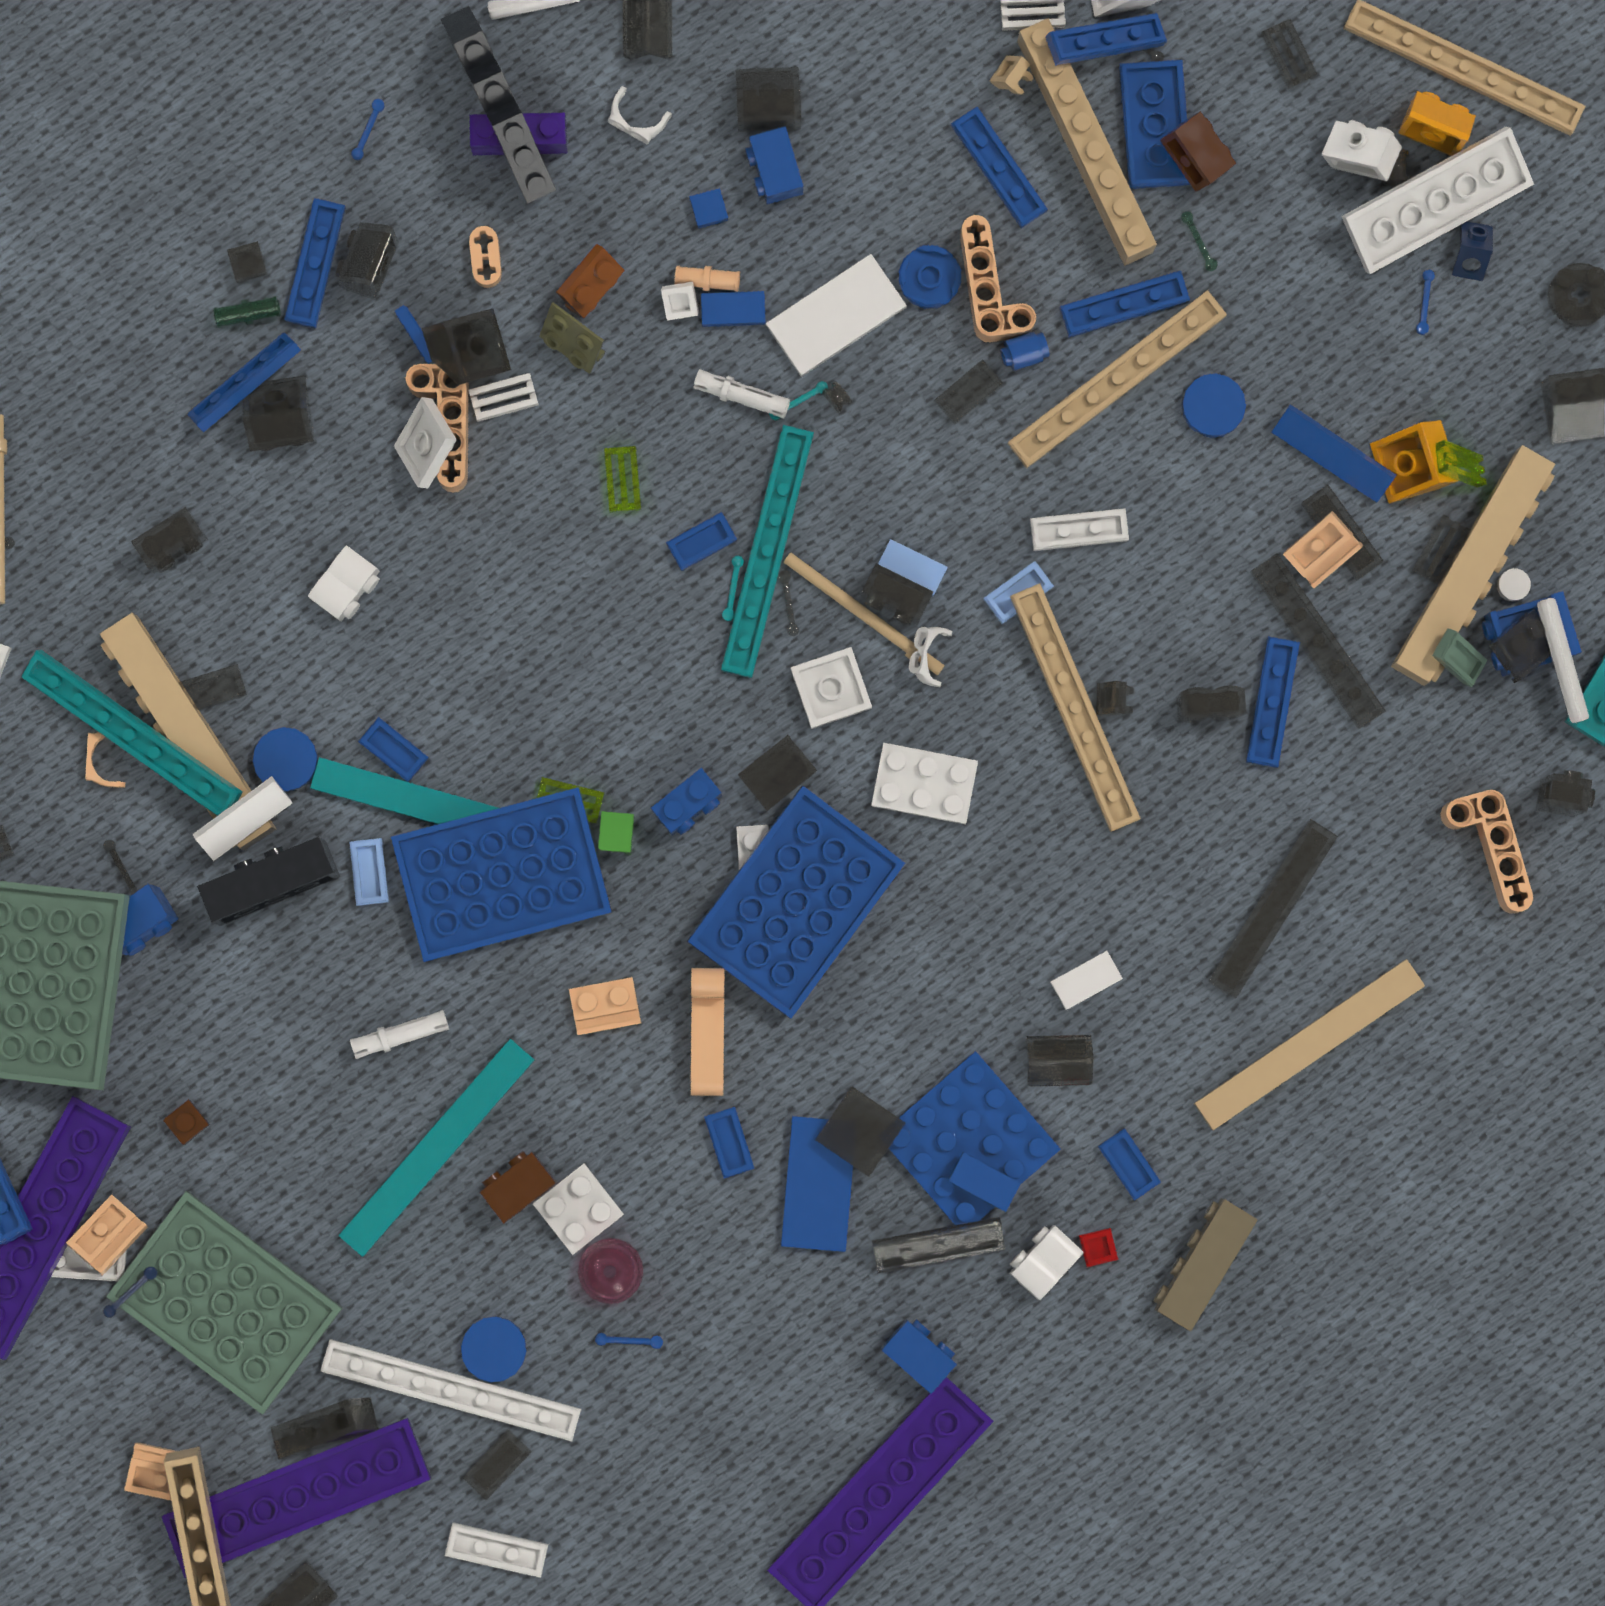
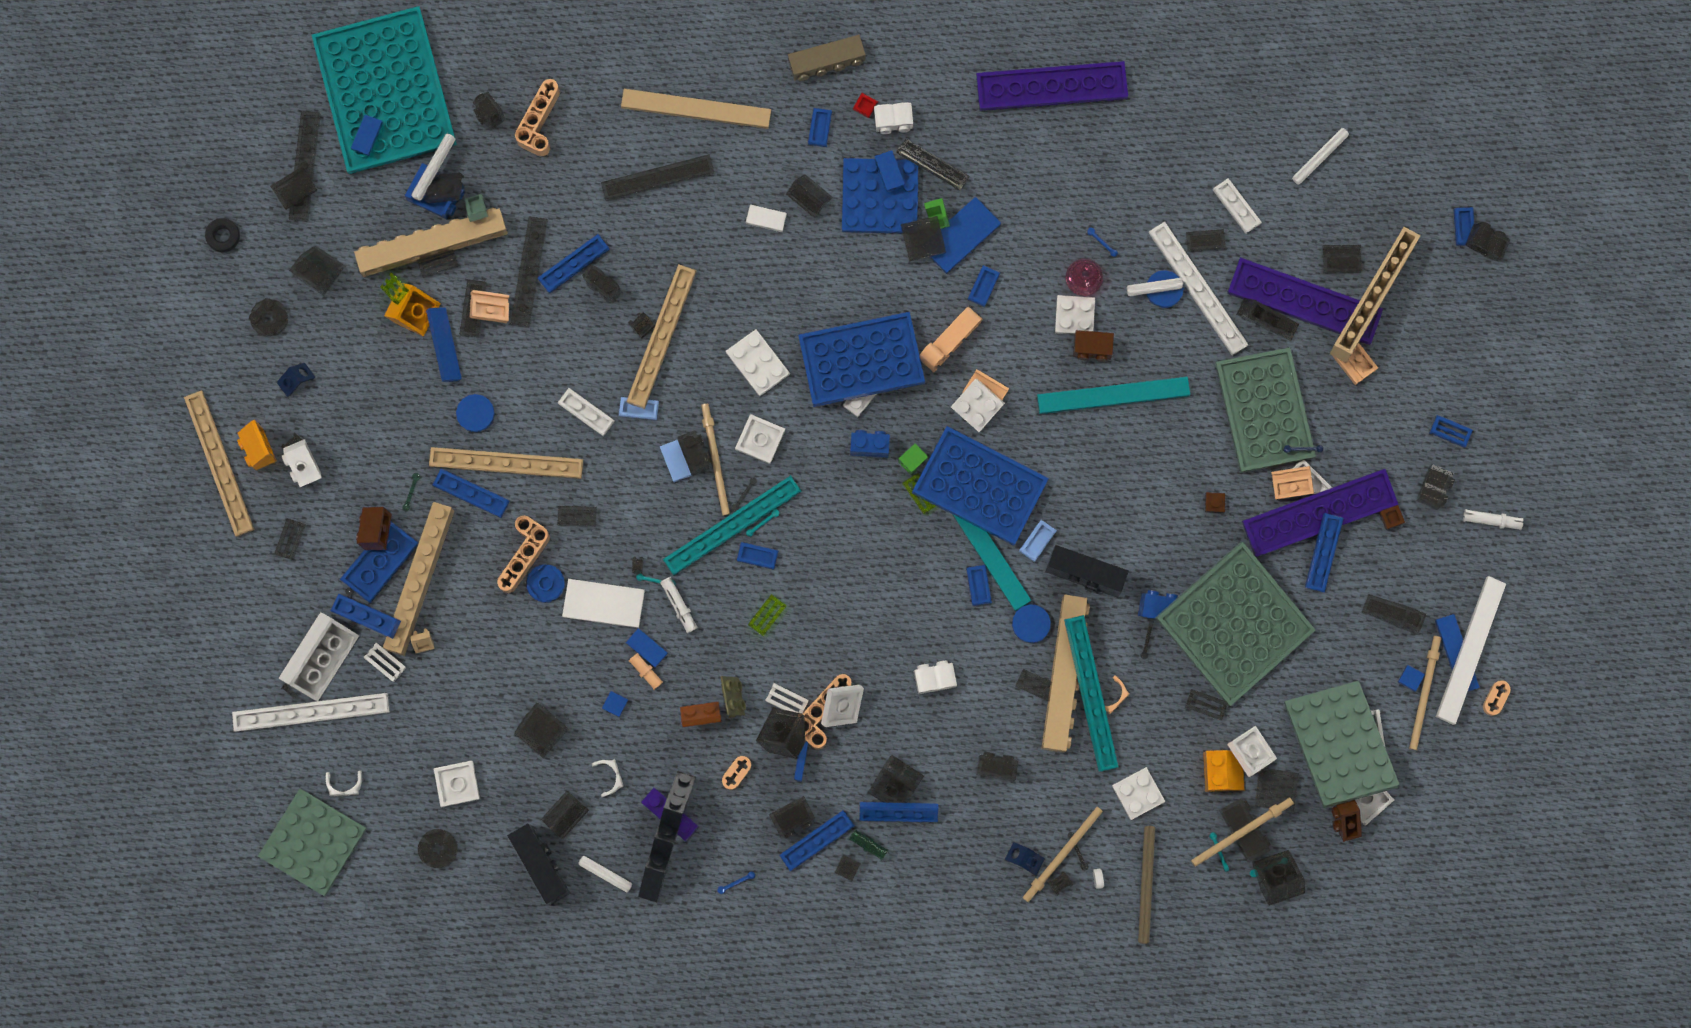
camera: 130 degrees left, 5 degrees down
(36, 462) = (1026, 859): none -> dark blue bracket
(242, 818) = (1074, 607): white tile -> none
(393, 1036) = (1087, 457): white pin -> none
(506, 1337) = (1153, 287): none -> white axle
(596, 975) = (977, 405): none -> white plate
(680, 301) = (667, 671): white plate -> none
(775, 165) = (568, 693): blue brick -> none
(777, 773) = (818, 423): clear smoke plate -> none
(875, 1188) = (938, 208): none -> bright green panel
(919, 1355) = (983, 126): blue brick -> none
(922, 671) = (694, 422): white cap -> none
(999, 167) = (467, 605): blue tile -> none
(1024, 350) = (535, 510): blue brick -> none
(1422, 328) = (350, 365): blue hinge -> none
(1438, 200) = (290, 412): white plate -> none
(1513, 585) = (421, 220): white tile -> none

